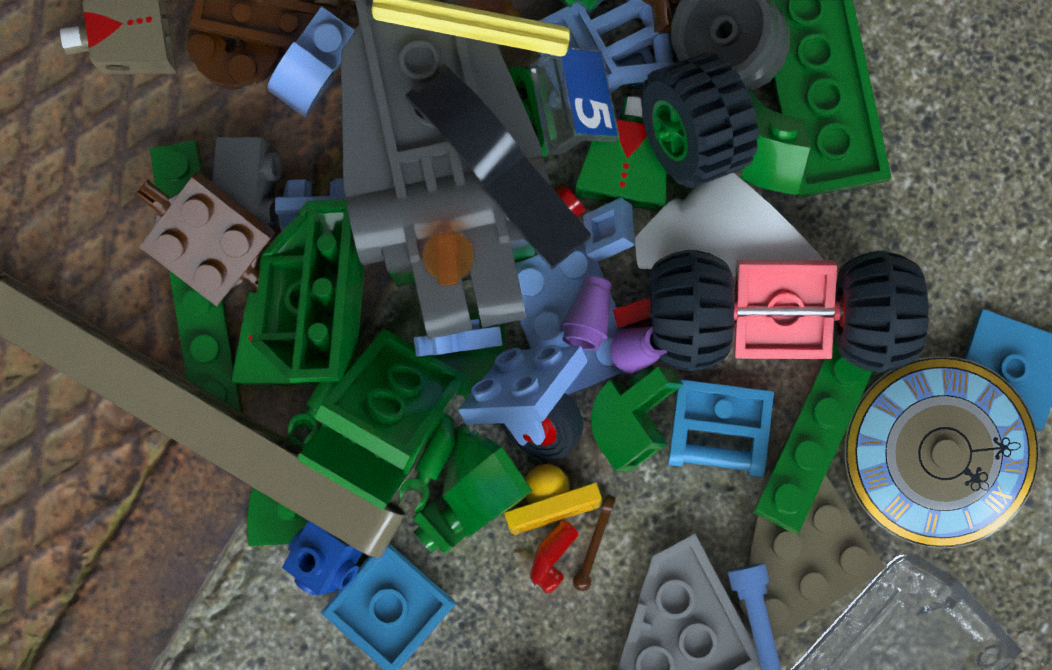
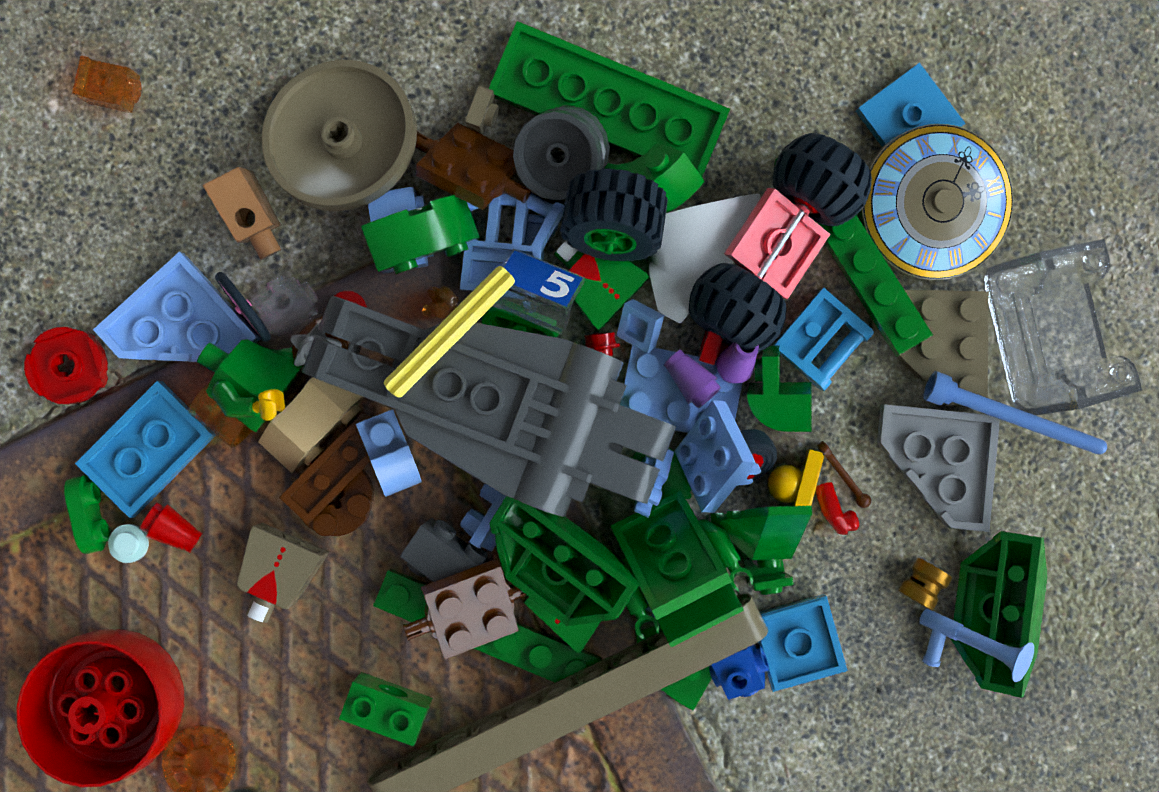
camera: 60 degrees left, 5 degrees up
(52, 226) = (386, 708): none -> green brick
(448, 256) = (605, 455): clear orange plate -> none
(500, 166) = (564, 378): black piece -> none

